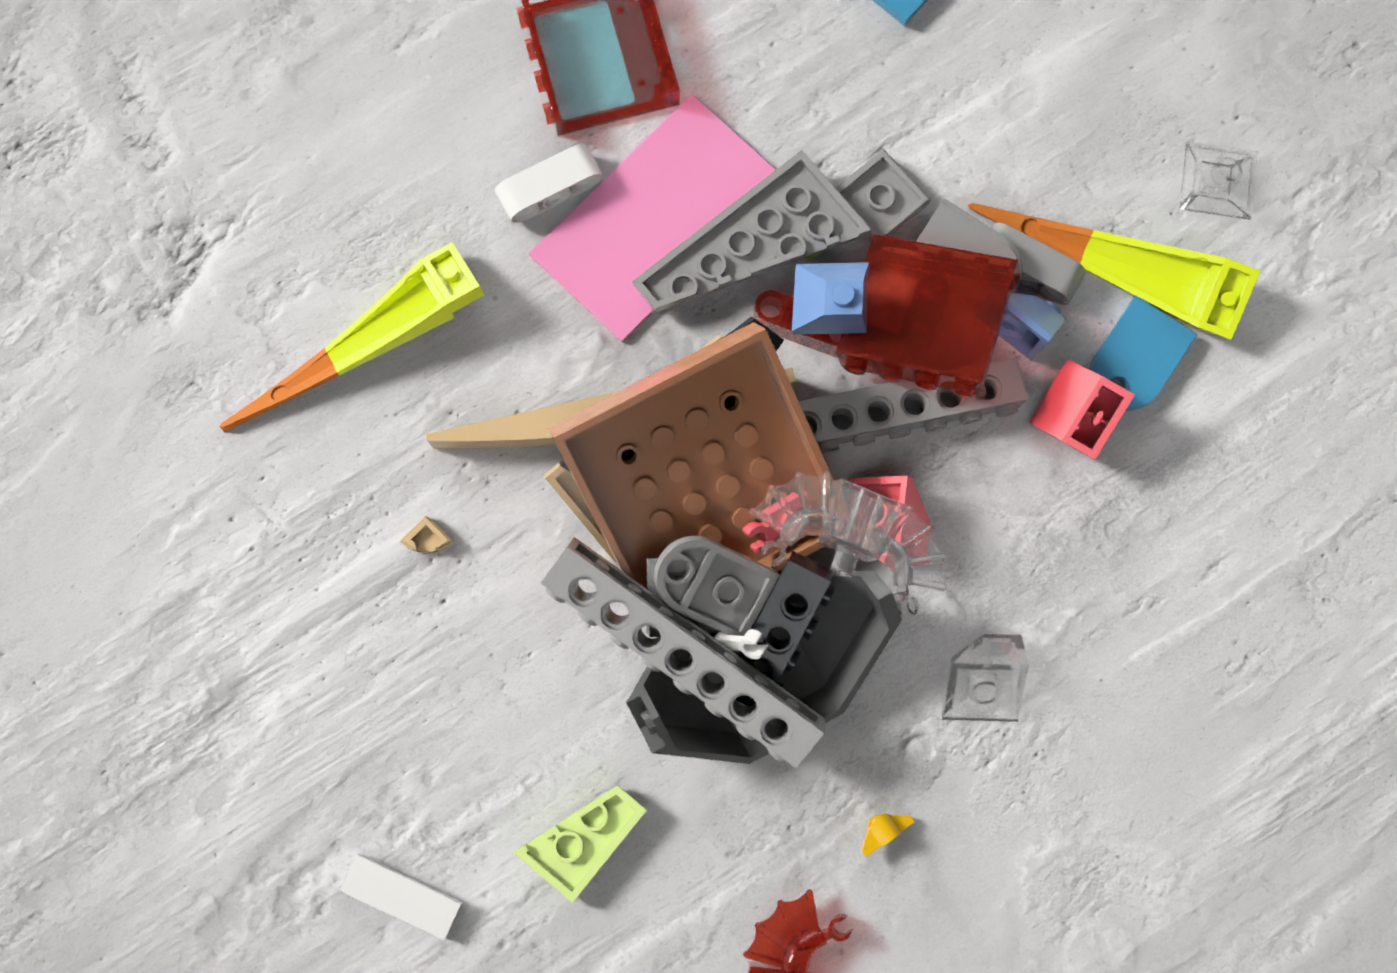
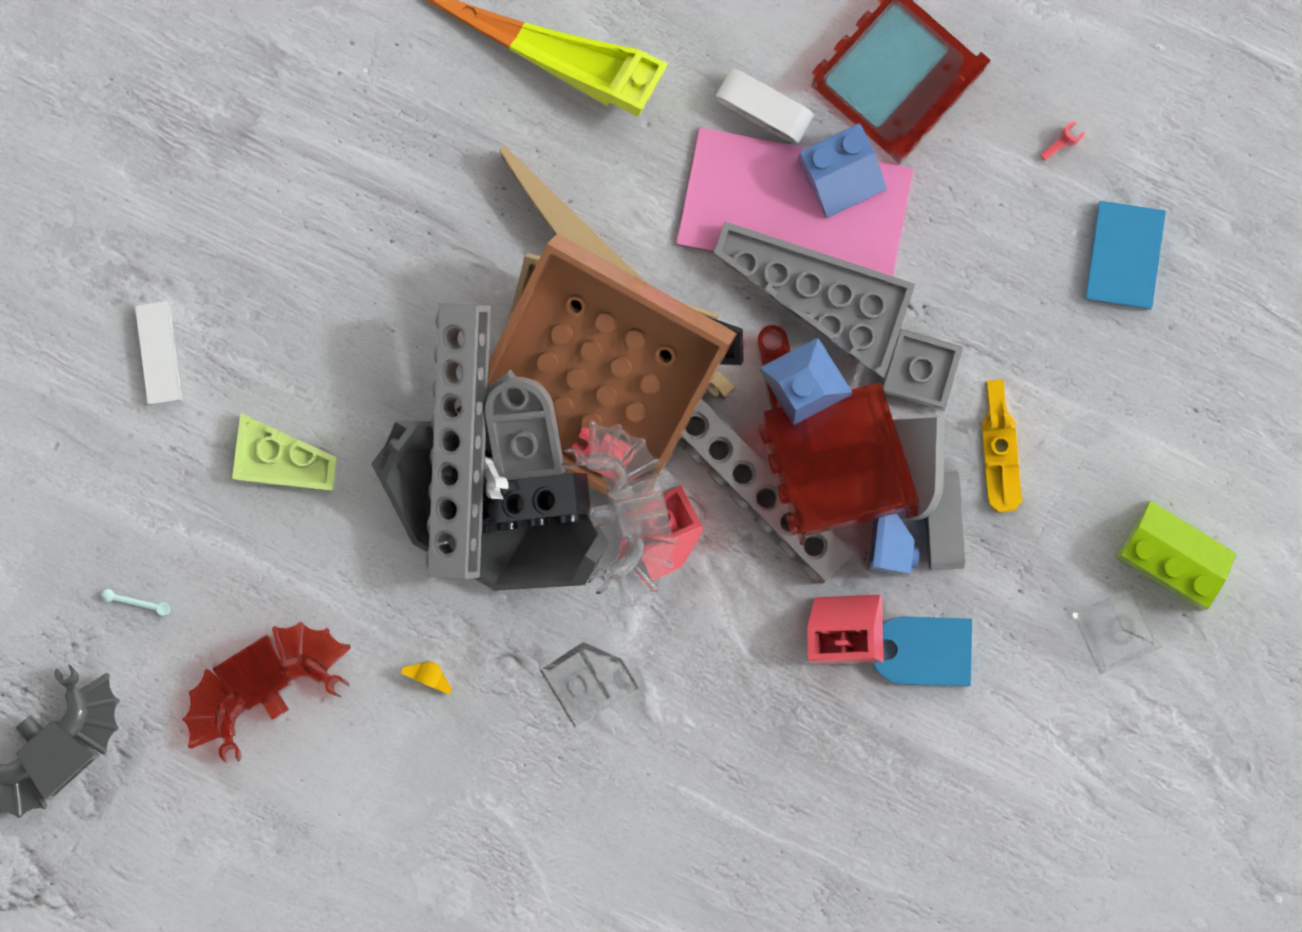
camera: 60 degrees right, 5 degrees up
(426, 537) = (429, 197): tan tile -> none
(654, 150) = (842, 170): none -> medium blue slope
(1010, 186) = (1001, 467): none -> yellow piece
(1184, 283) = (1004, 651): neon yellow plate -> none
(1188, 88) = (1177, 556): none -> lime slope

